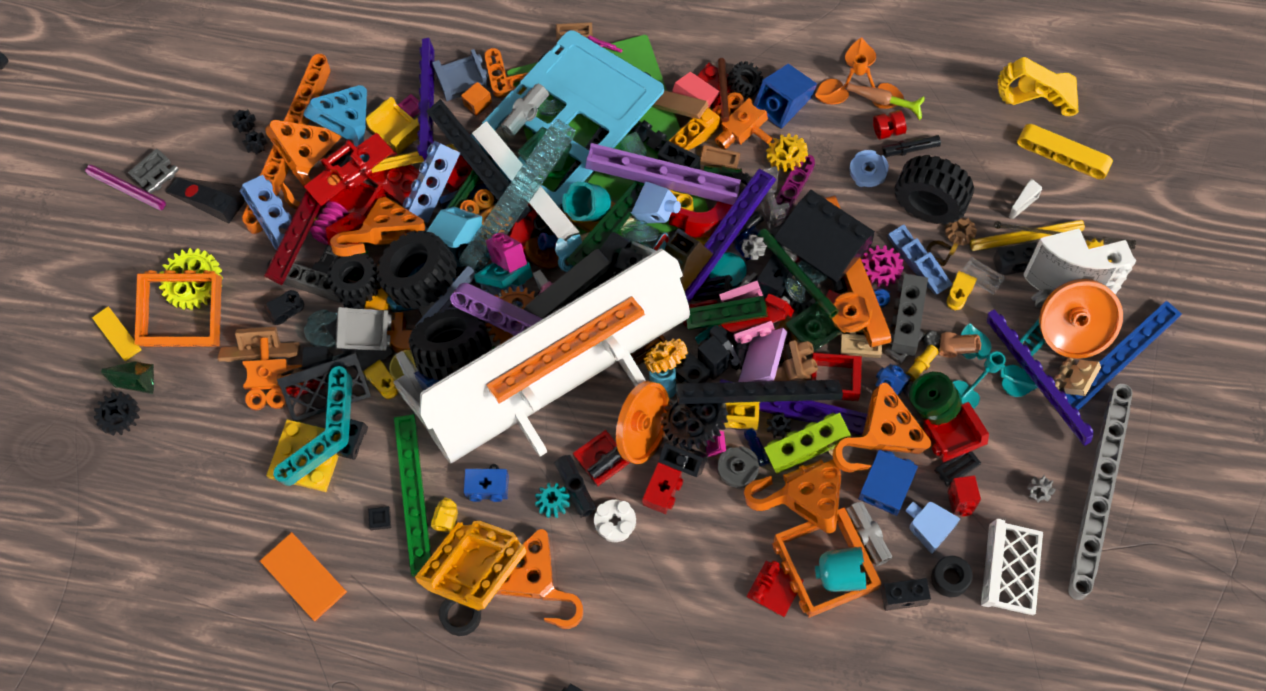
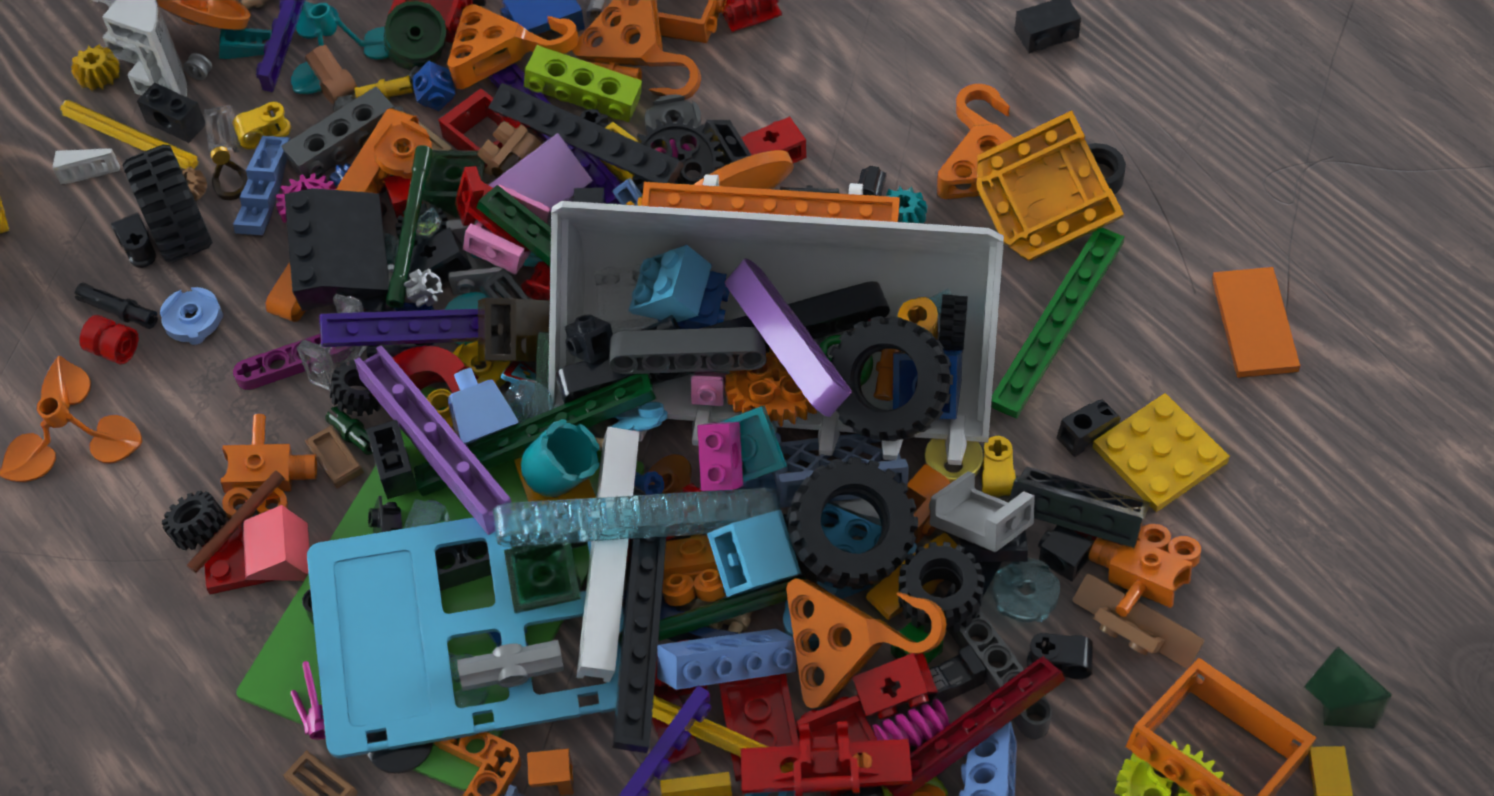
camera: 140 degrees left, 10 degrees down
(116, 422) = (1395, 666): black gear -> none
(326, 438) = (1130, 416): teal beam -> none
(379, 518) = (1117, 325): black tile -> none
(445, 516) = (1039, 273): yellow rock -> none
(607, 529) = (845, 144): white plate -> none
(681, 104) = (304, 522): medium nougat tile -> none
(697, 130) = (329, 496): light orange slope -> none
(756, 446) = (636, 121): clear blue axle -> none
(784, 94) = (172, 463): blue slope -> none
(796, 152) = (251, 381): yellow gear -> none
(885, 97) = (72, 373): nougat piece -> none
(1107, 240) = (48, 59): clear smoke piece -> none

